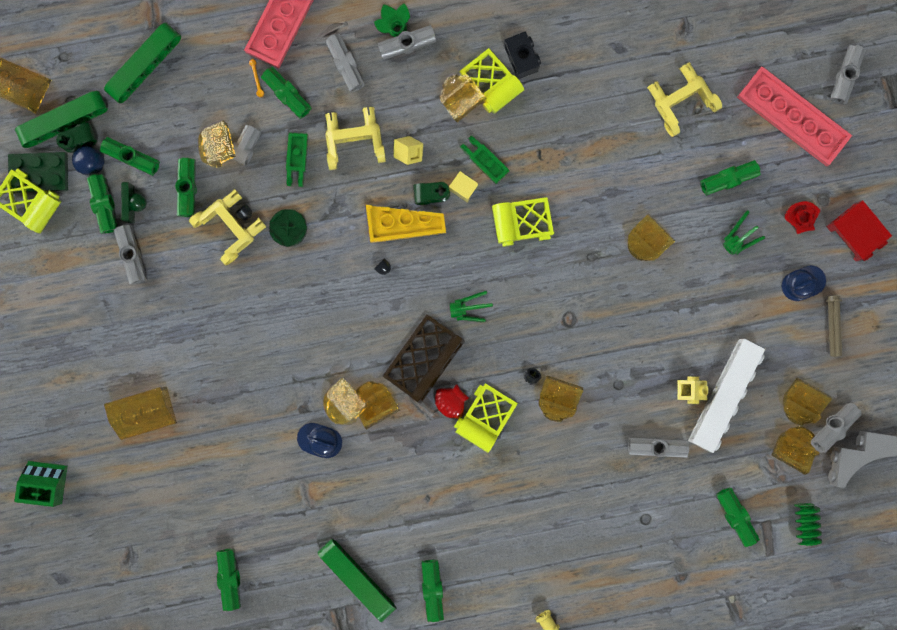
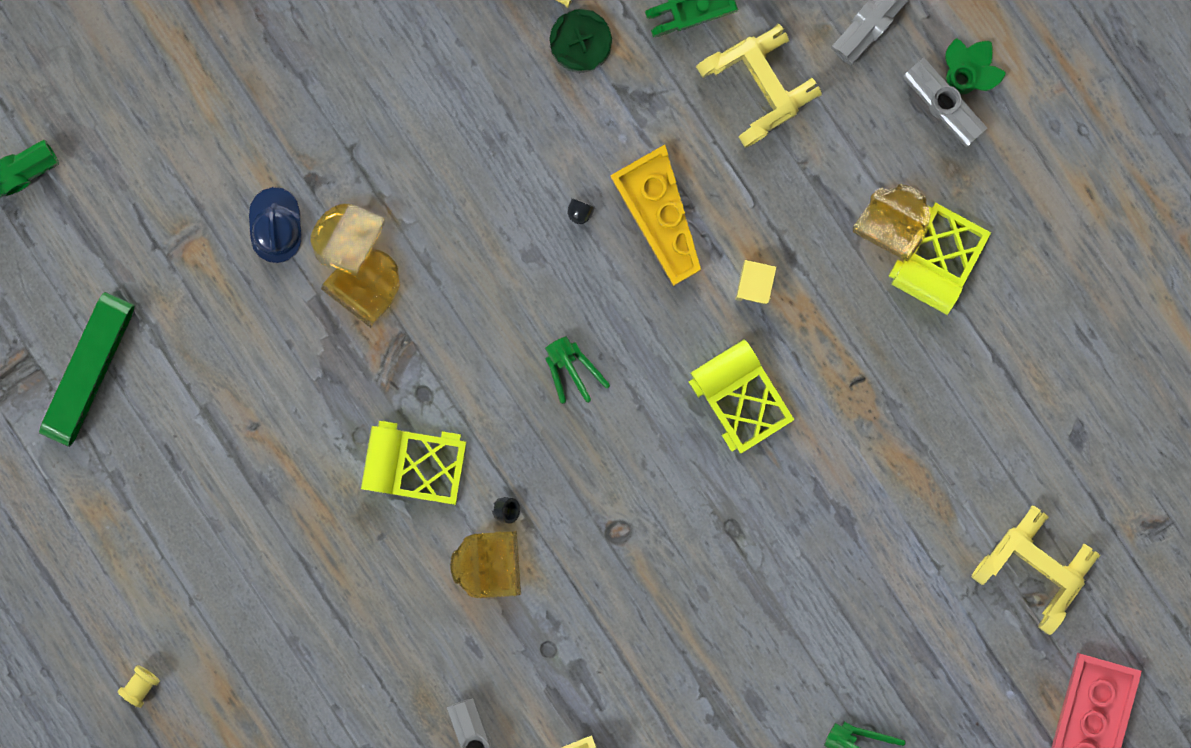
camera: 65 degrees right, 0 degrees up
(408, 150) = (777, 174): light yellow panel -> none
(426, 193) = (723, 231): dark green piece -> none
(432, 590) = (117, 490): green piece -> none
(437, 368) = (458, 358): dark brown fence -> none
(451, 401) = (416, 400): red animal -> none
(486, 161) = (810, 302): green hinge -> none
(522, 66) = (982, 297): black brick -> none
(648, 240) = (792, 604): clear yellow slope -> none
(730, 177) = (944, 693): green piece -> none

